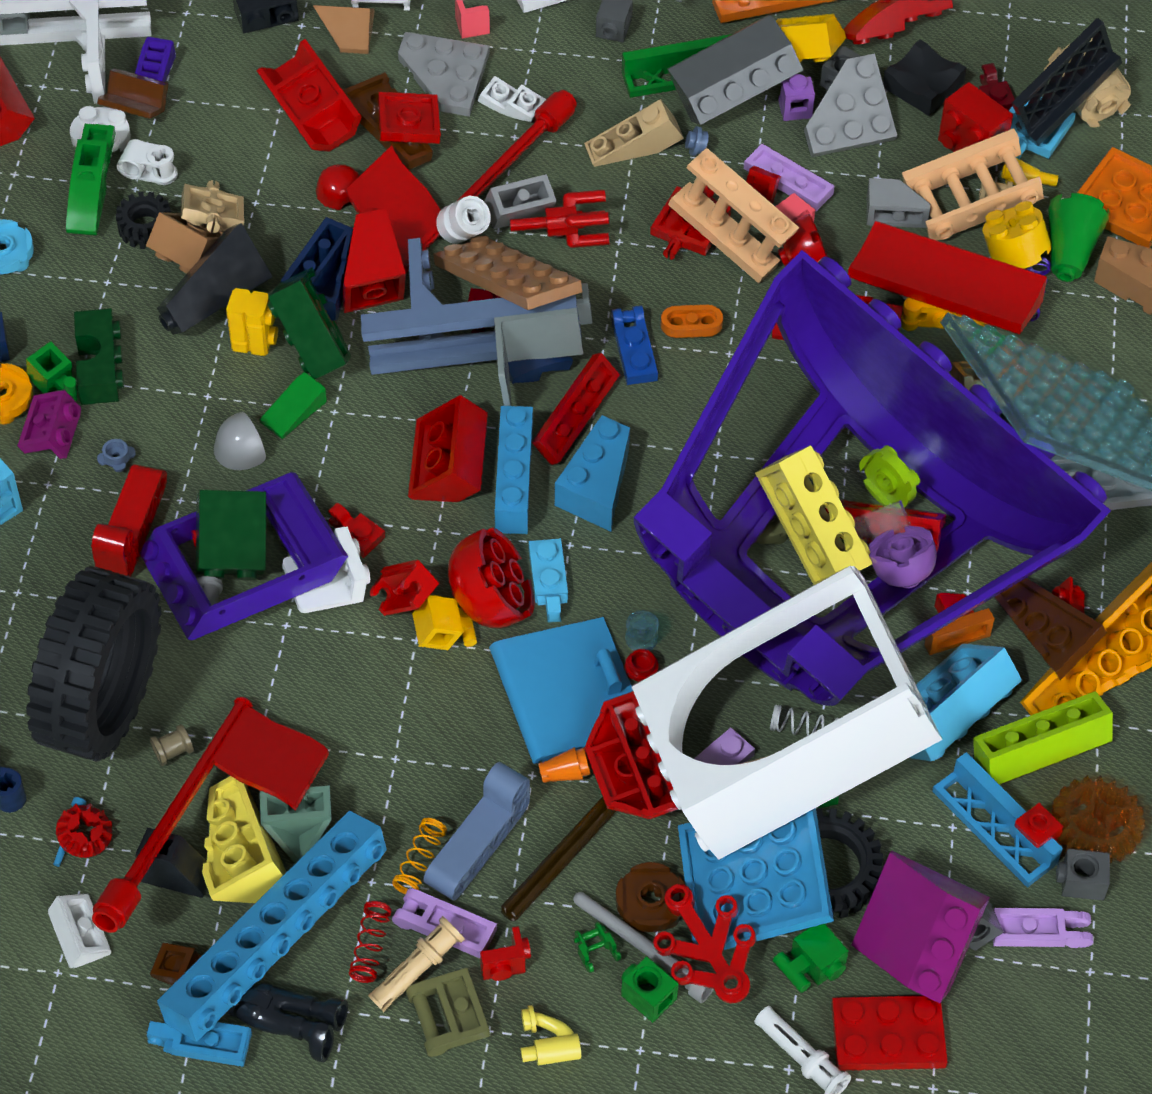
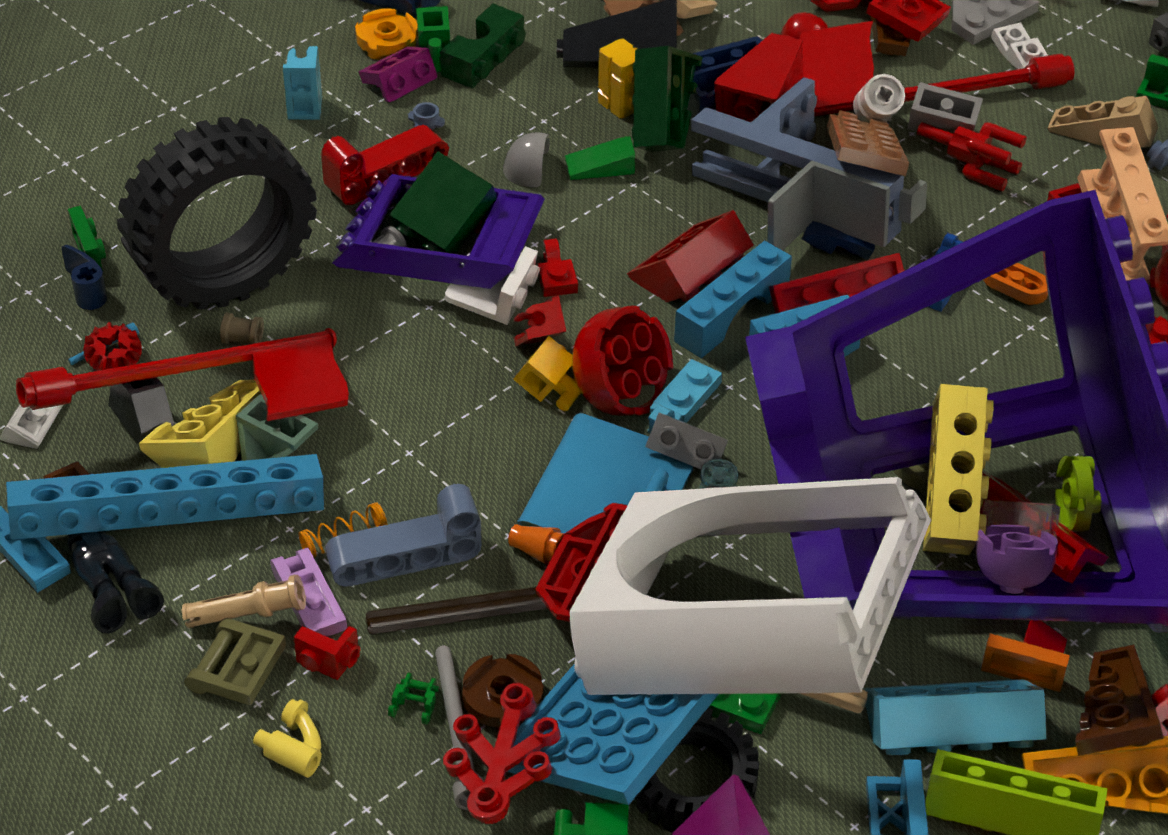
camera: 40 degrees right, 10 degrees down
(361, 978) = (204, 590): red piece -> none
(594, 615) = (684, 441): none -> light grey hinge
(649, 1003) = (420, 760): green brick -> none

